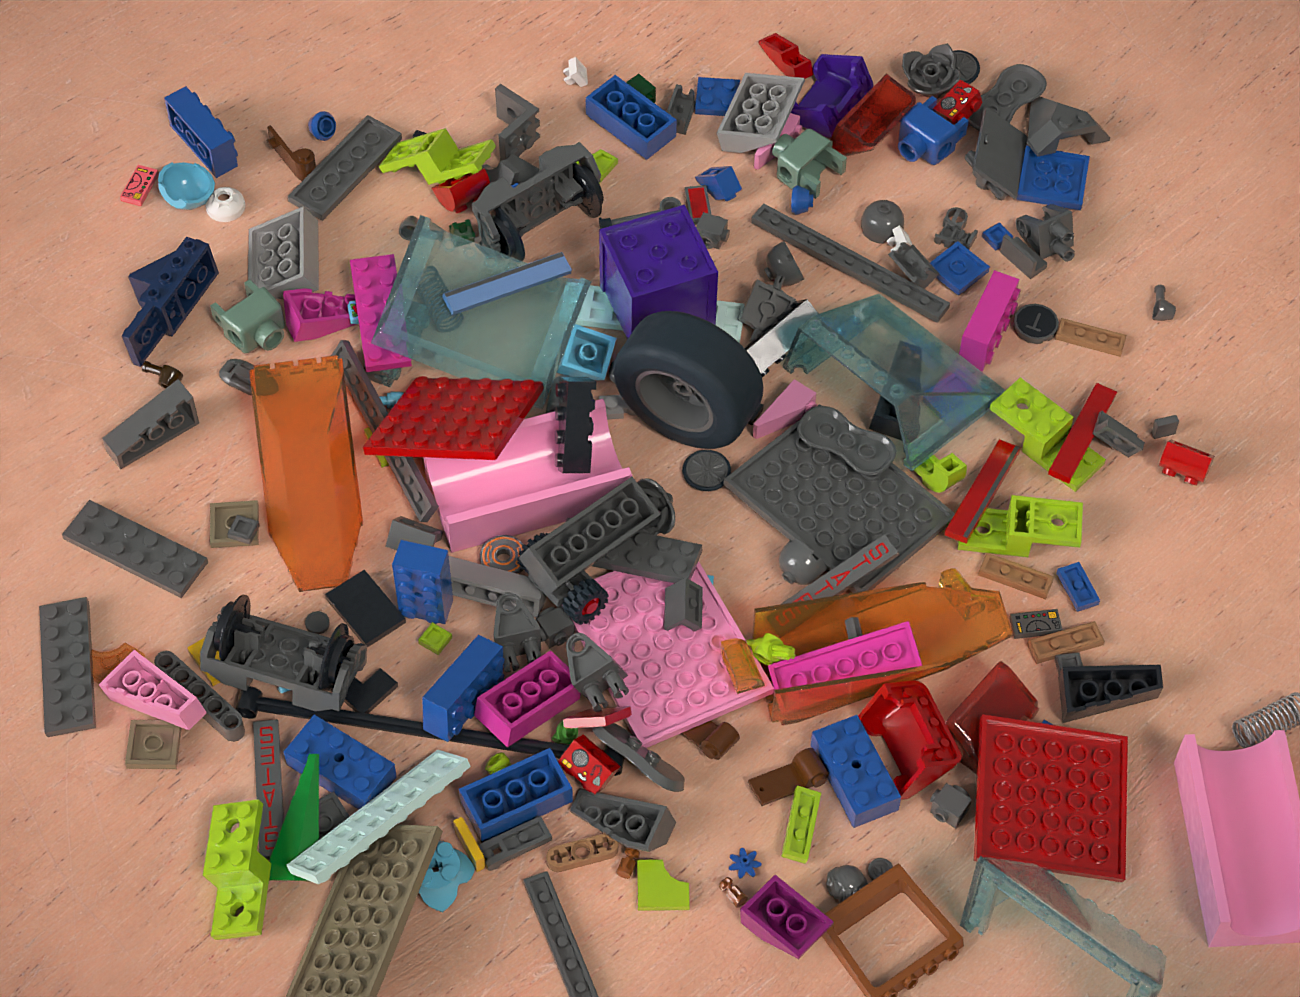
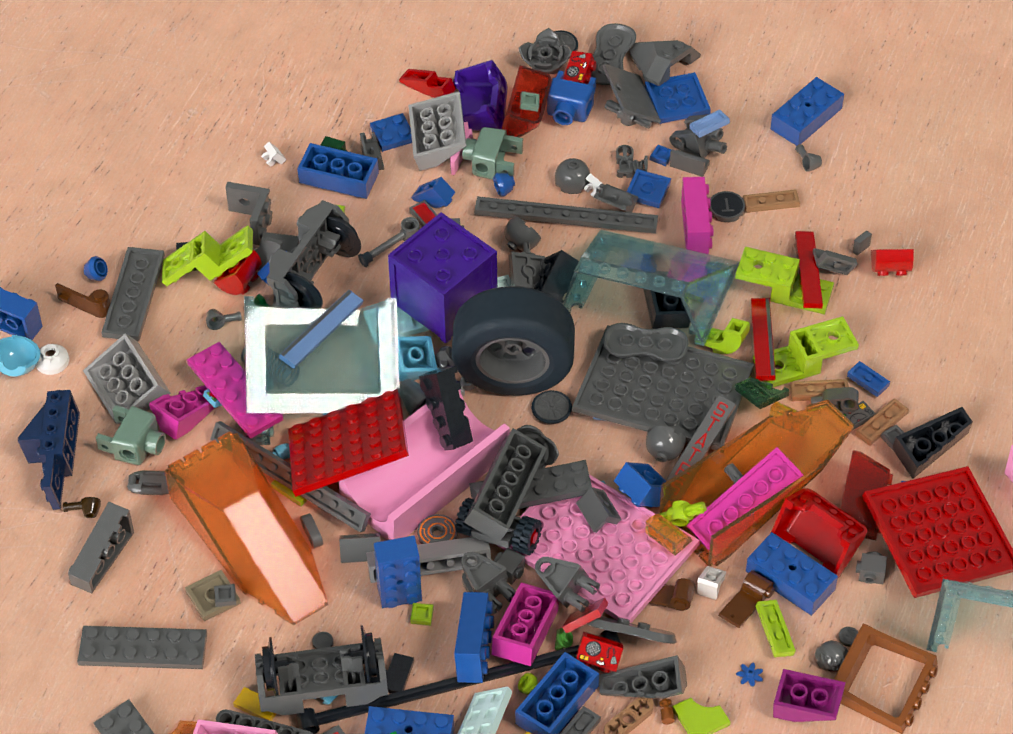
camera: 25 degrees left, 5 degrees down
(365, 608) = (349, 611): black tile -> none
(373, 498) = (311, 530): none -> dark grey beam
(734, 893) = (756, 698): dark orange piece -> none
(742, 593) = (640, 484): none -> blue brick
(760, 738) = (710, 581): none -> white slope
(785, 410) = (586, 337): bright pink slope -> none
(873, 118) = (529, 101): none -> sand green tile
(940, 551) = (759, 392): none -> clear green wing
(1025, 596) = (843, 398): none -> dark grey piece
(1061, 220) = (709, 123): none -> medium blue tile
(1192, 250) = (807, 111): none -> blue brick

